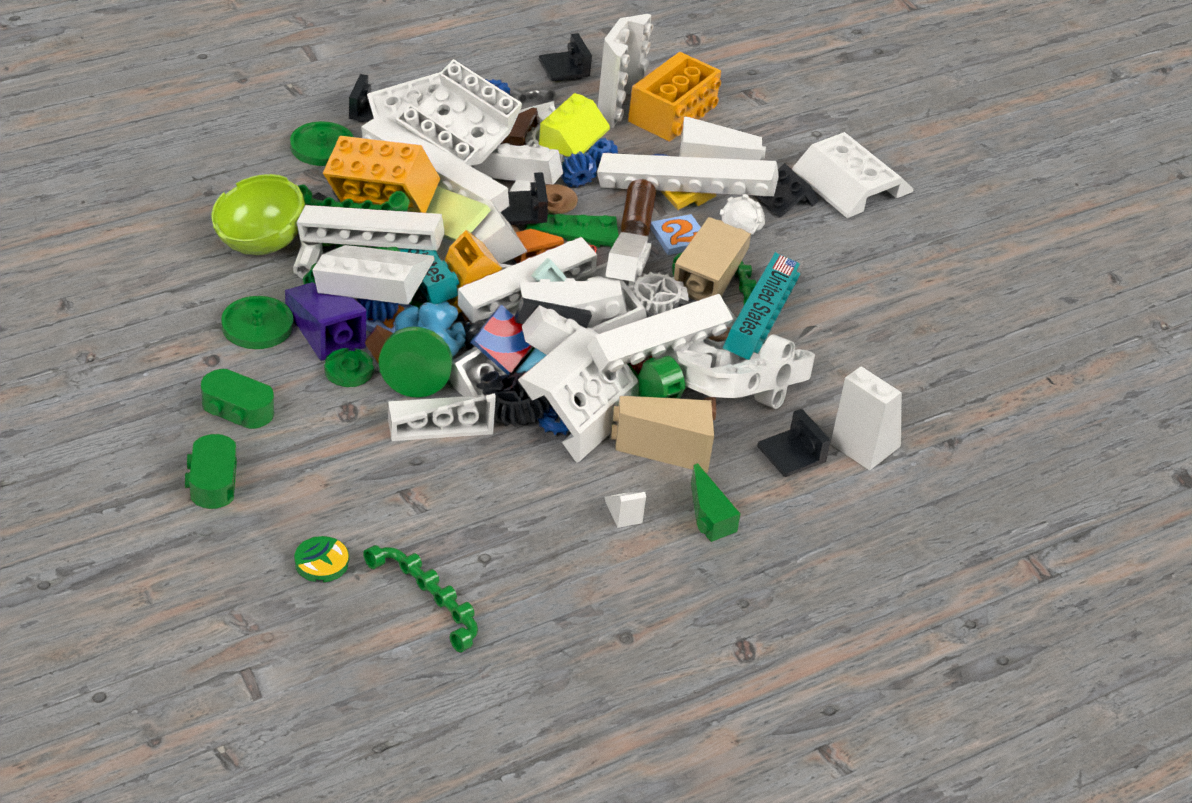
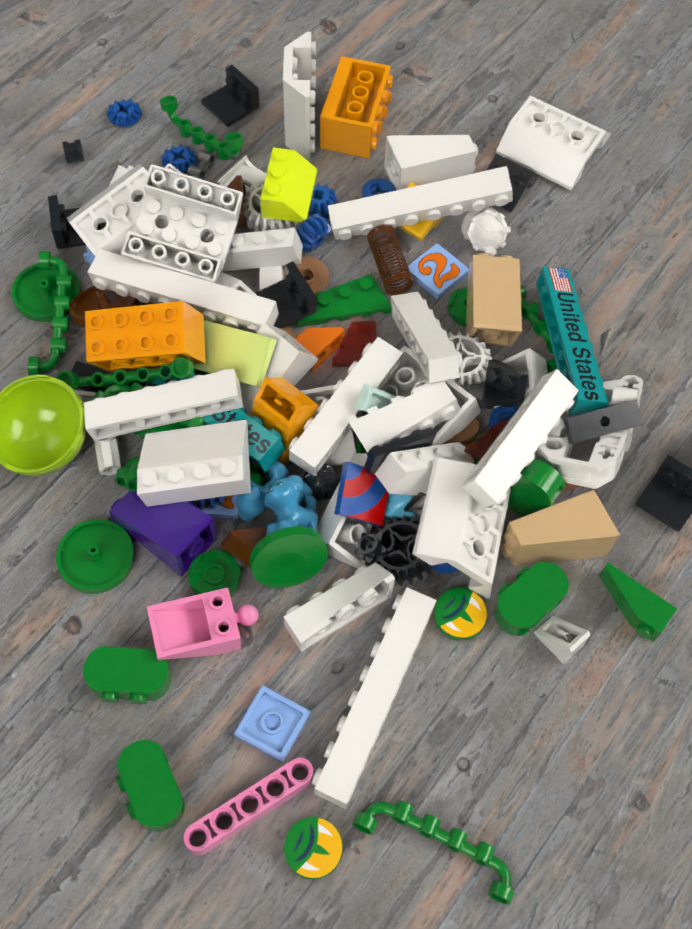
camera: 20 degrees left, 20 degrees up
(285, 511) = (241, 819): none -> bright pink beam
(316, 386) = (197, 625): none -> bright pink slope
(319, 163) = (59, 322): none -> green bar
(337, 474) = (272, 723): none -> light blue tile
(402, 56) = (73, 151): none -> black wheel
(434, 483) = (374, 699): none -> white brick
(464, 45) = (122, 119): none -> blue gear
(541, 79) = (226, 149): none -> green bar
(545, 461) = (460, 614): none -> tile
(614, 469) = (530, 597): none -> green brick
(759, 351) = (614, 419): none -> black tile

